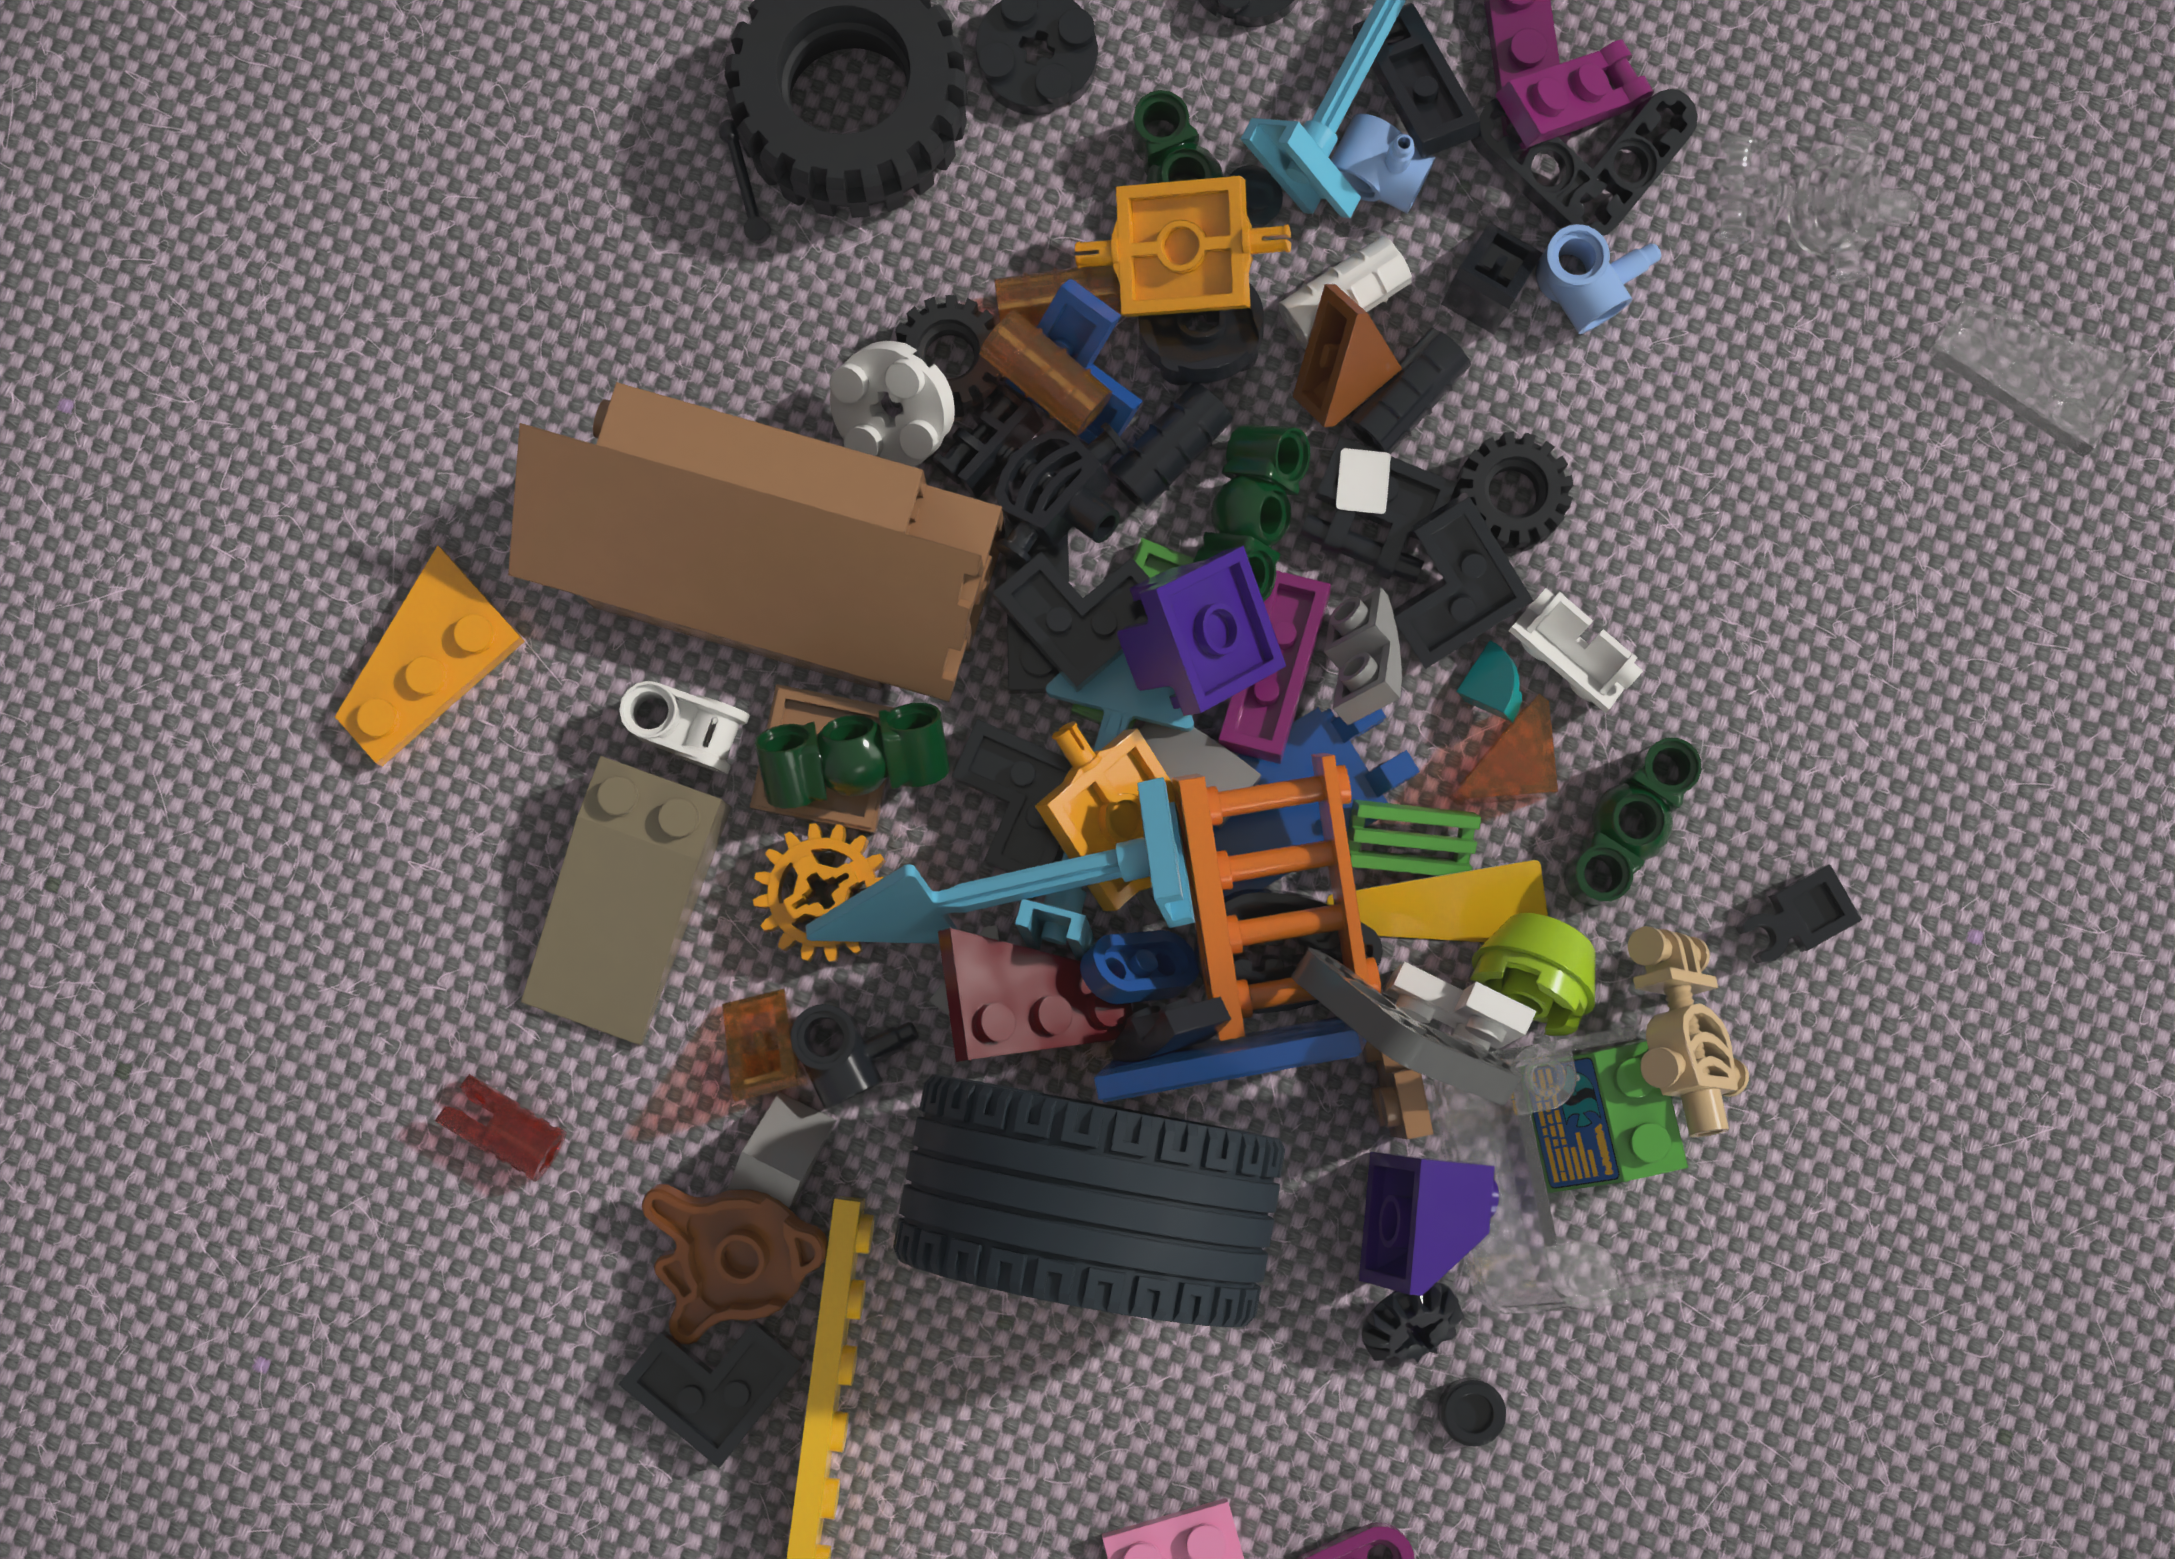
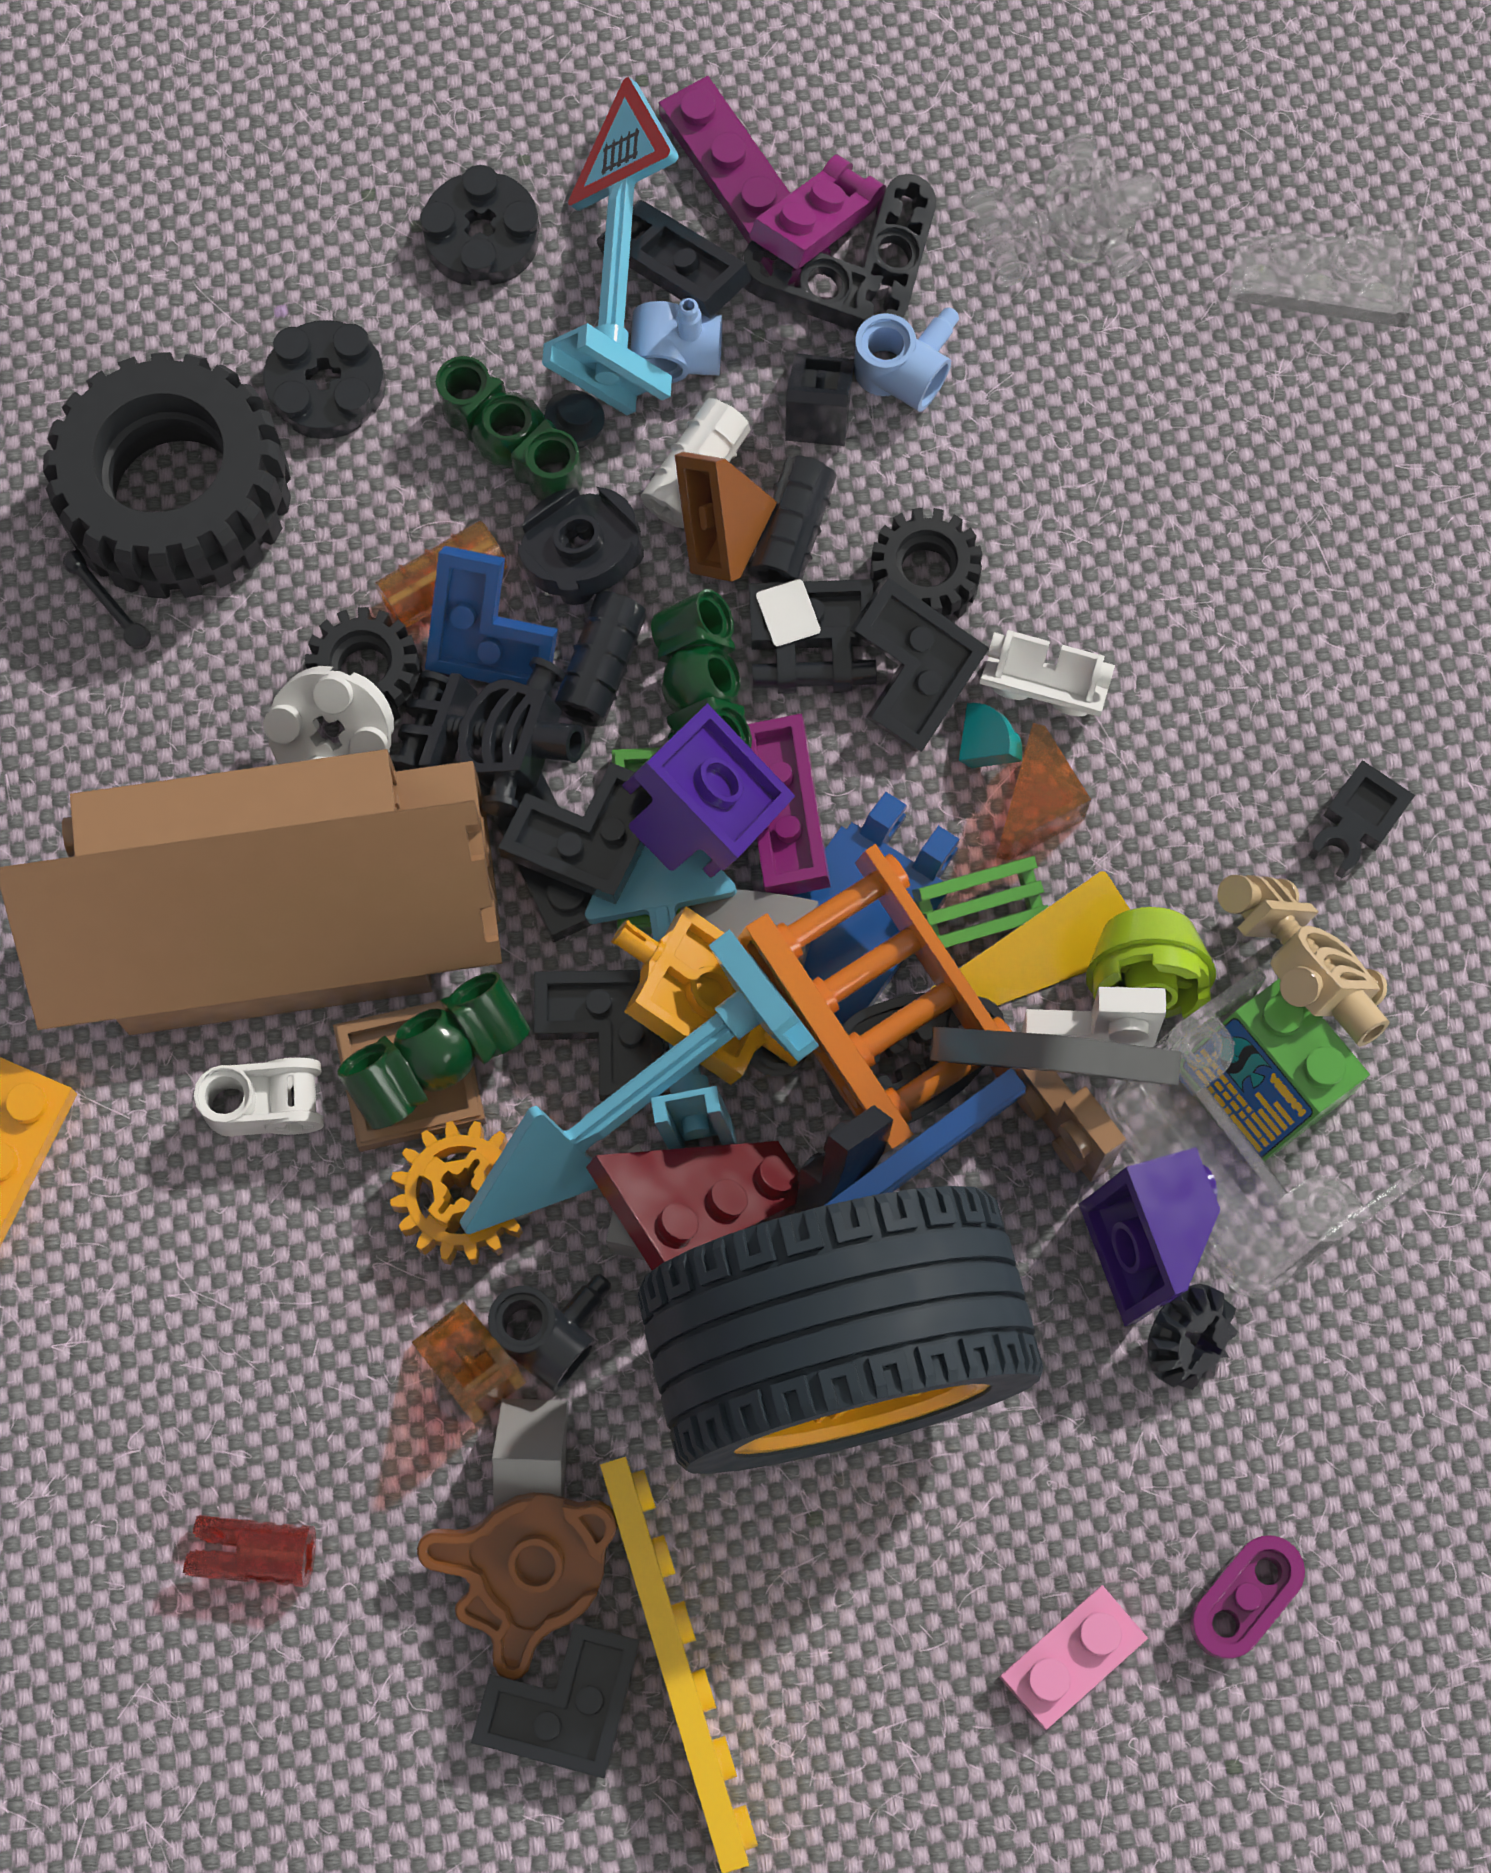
camera: 20 degrees left, 10 degrees down
(623, 899) = (275, 1283): dark tan slope -> none
(1045, 372) = (458, 636): clear orange axle -> none
(1139, 966) = (785, 1125): blue plate -> none
(1183, 246) = (533, 477): light orange plate -> none
(1367, 653) = (862, 758): light grey slope -> none
(1472, 1411) = (1286, 1397): black tile -> none
(1653, 800) = (1178, 775): dark green piece -> none

